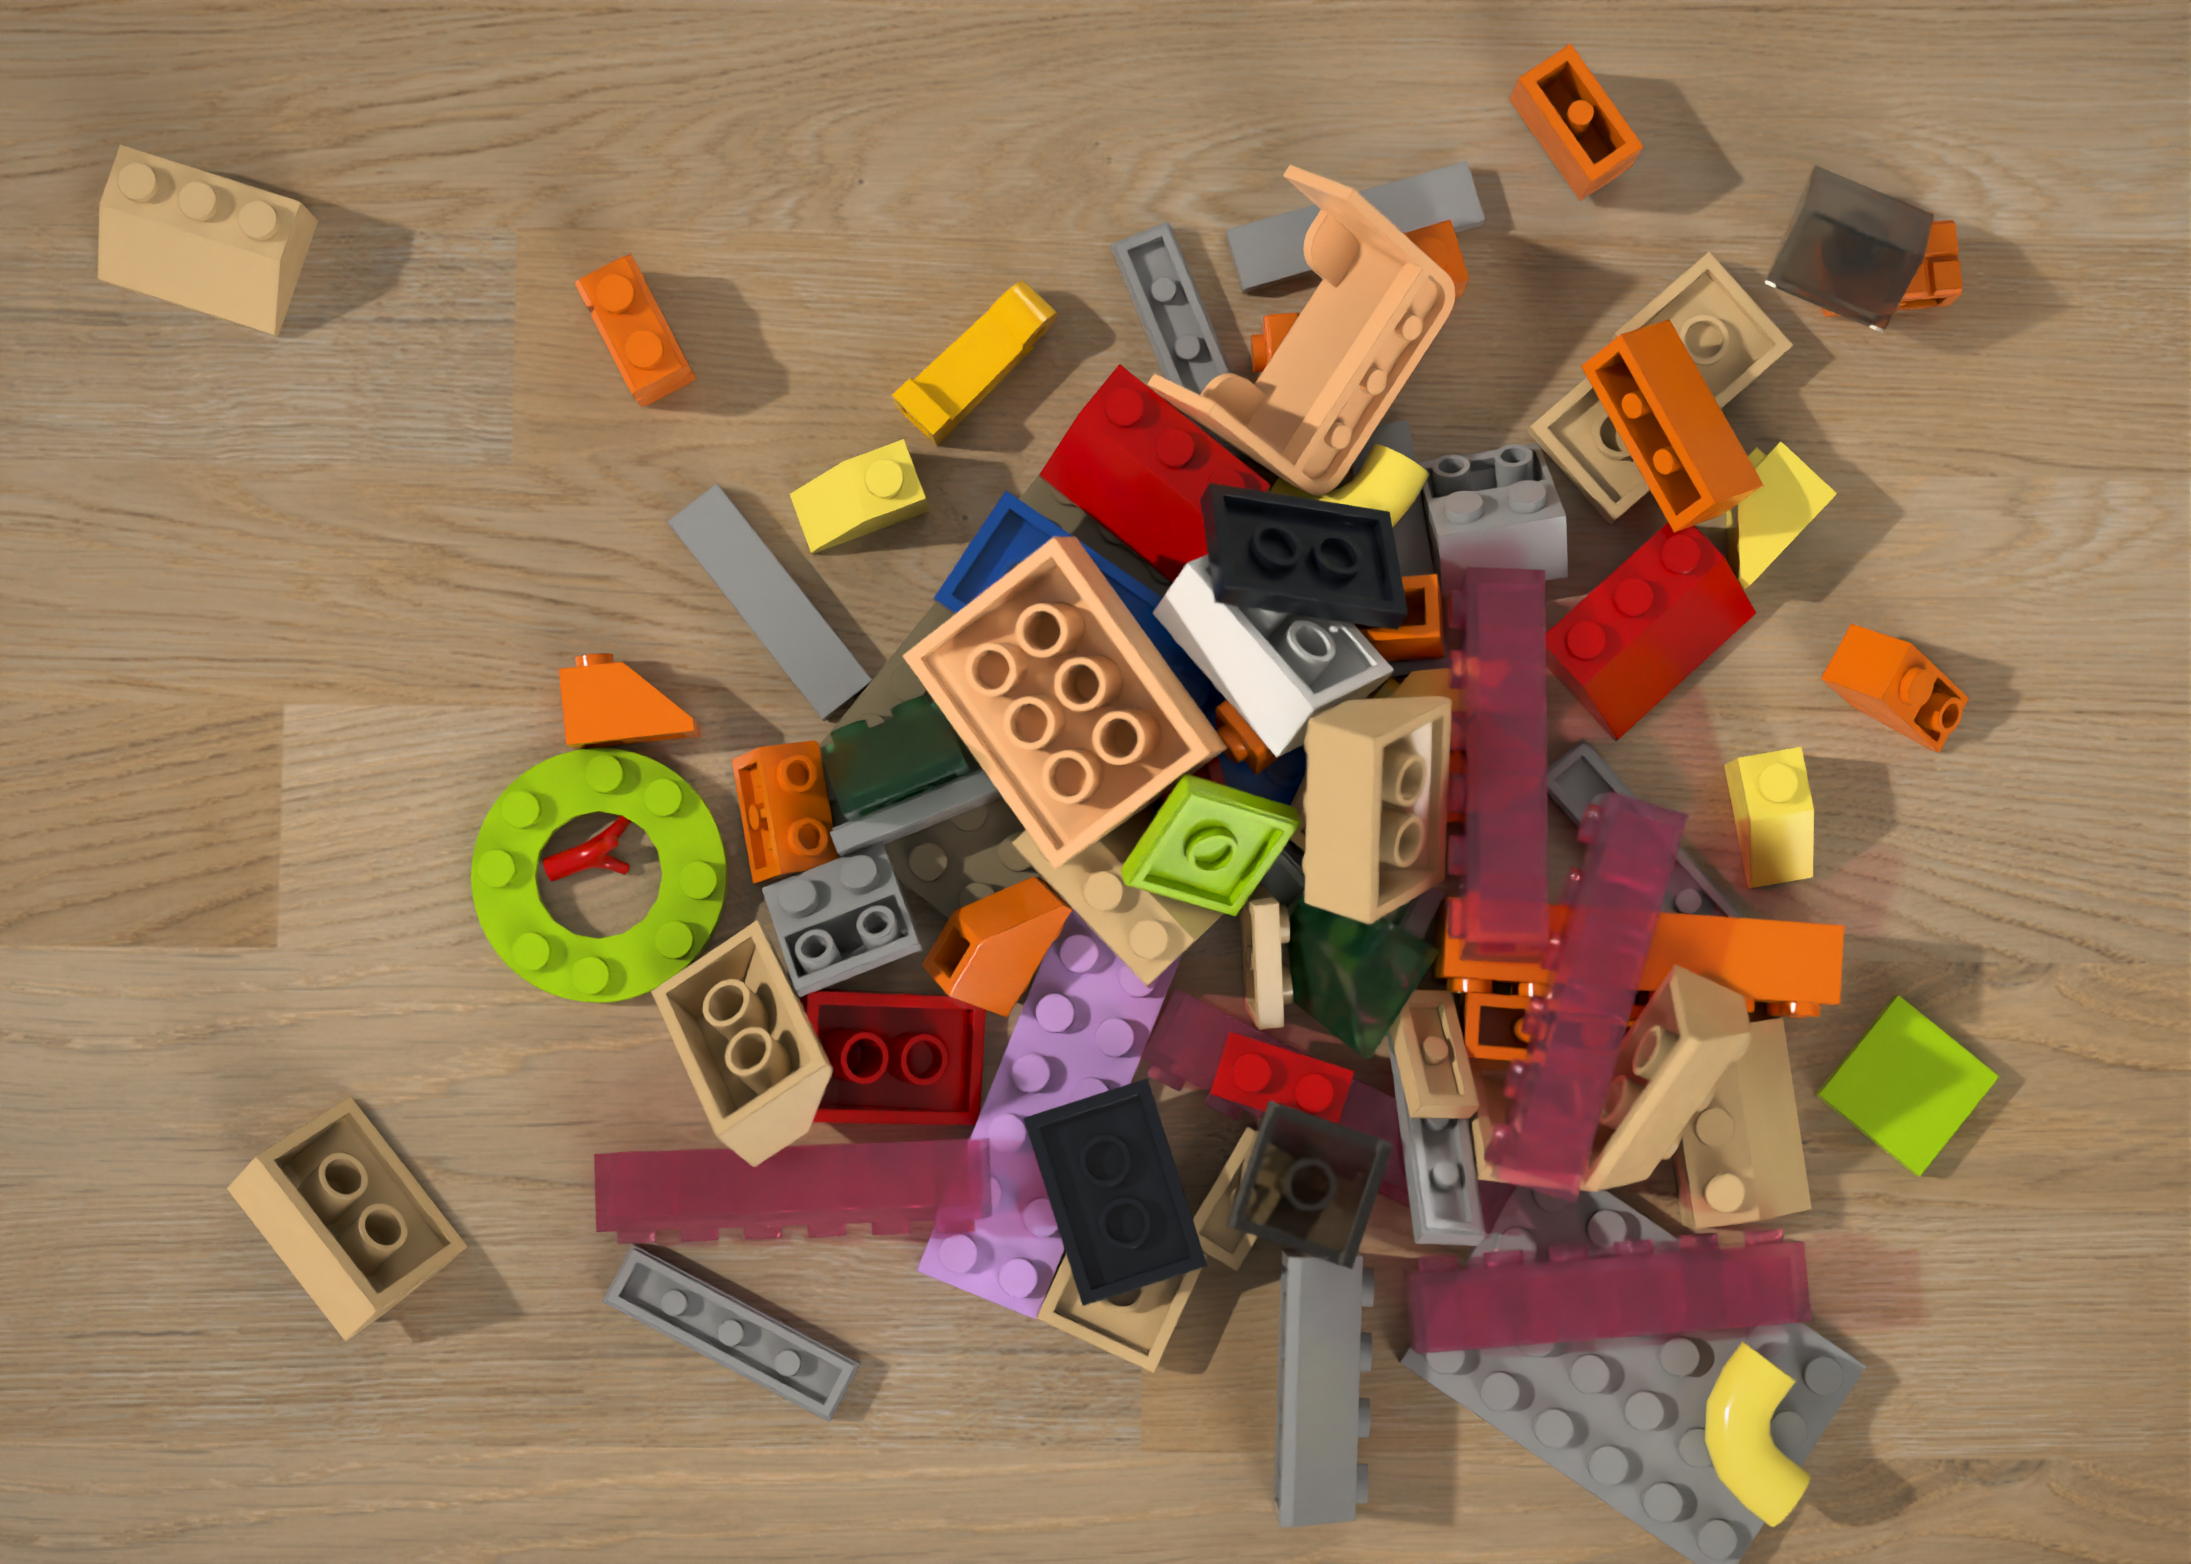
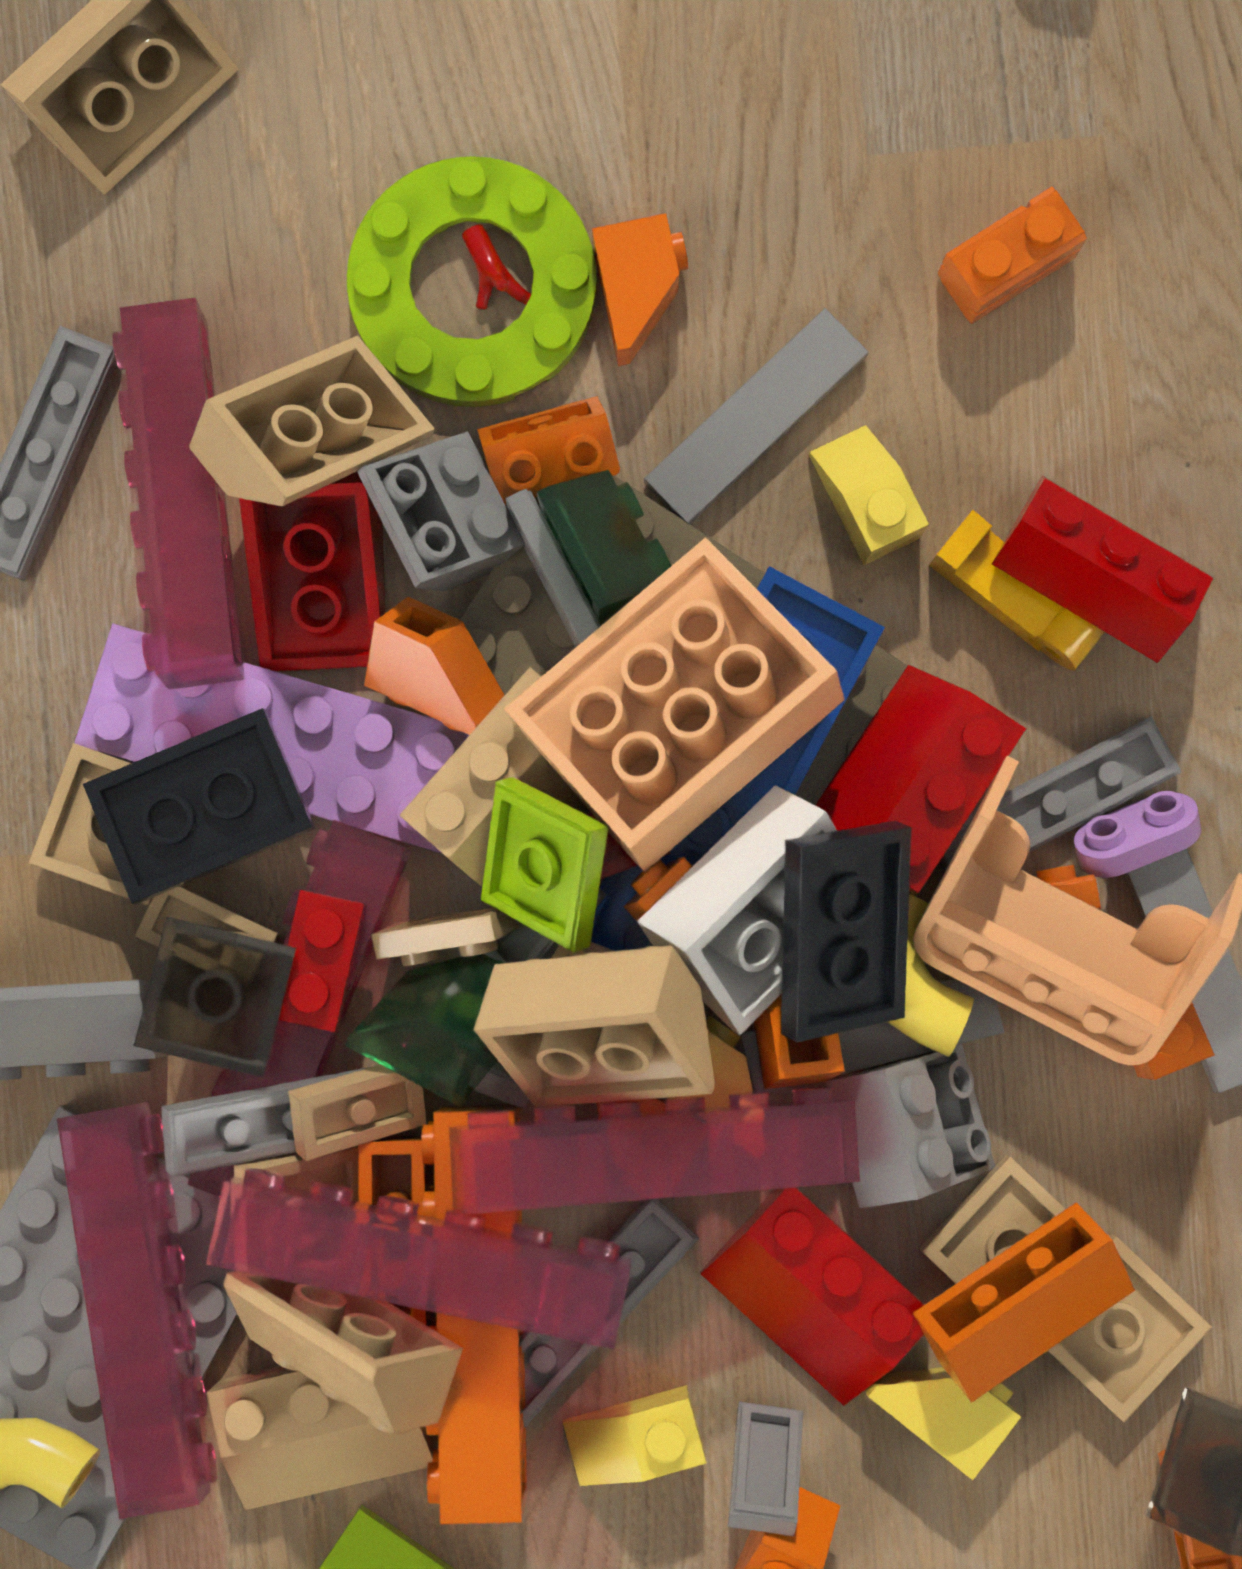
camera: 85 degrees right, 0 degrees up
(962, 274) = (1102, 570): none -> red slope
(1226, 270) = (1137, 834): none -> lavender plate
(1810, 691) = (766, 1469): none -> light grey tile

